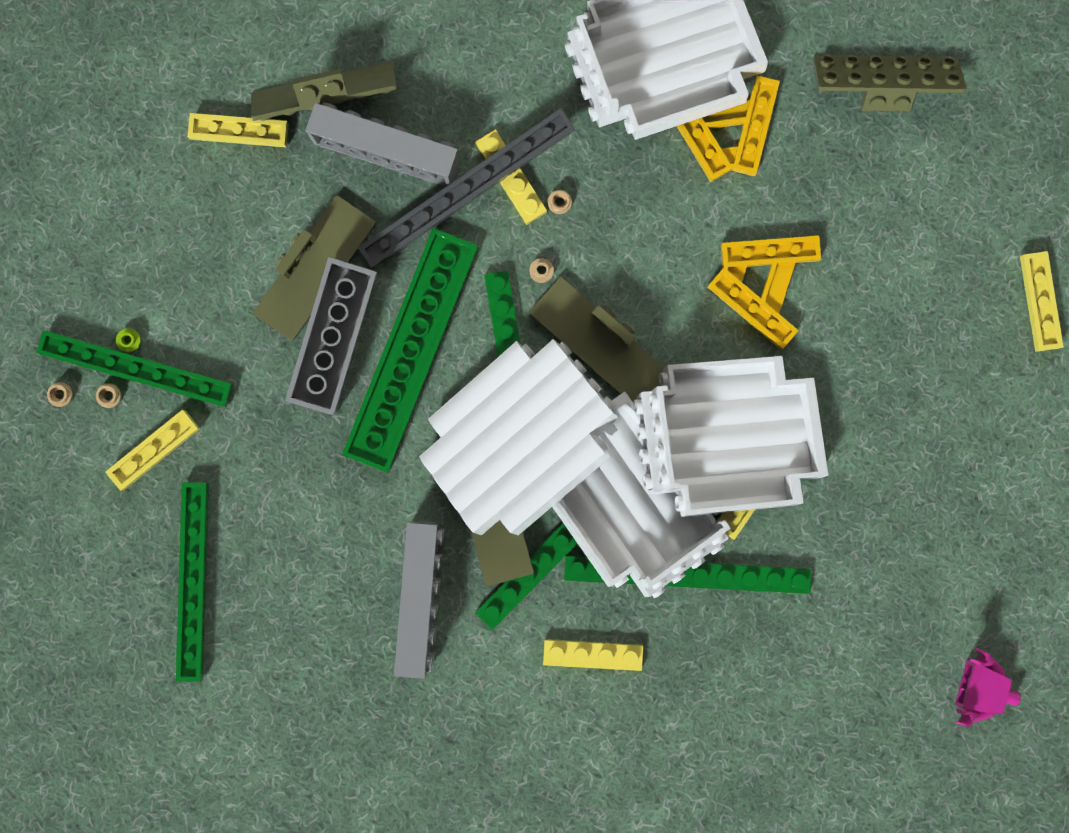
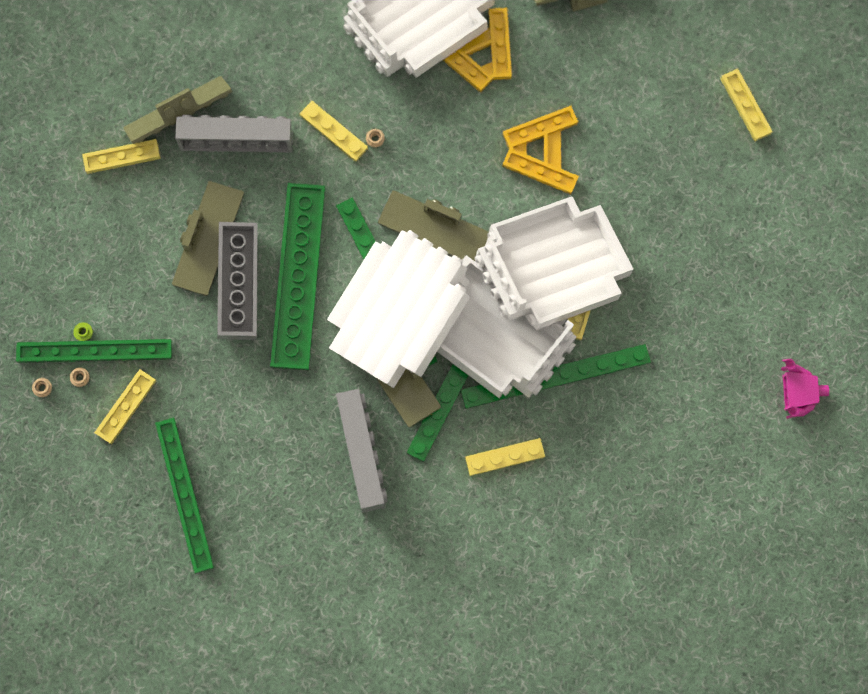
camera: 20 degrees left, 10 degrees down
(466, 188) = (303, 147): dark grey plate -> none
(541, 278) = (377, 195): tan plate -> none

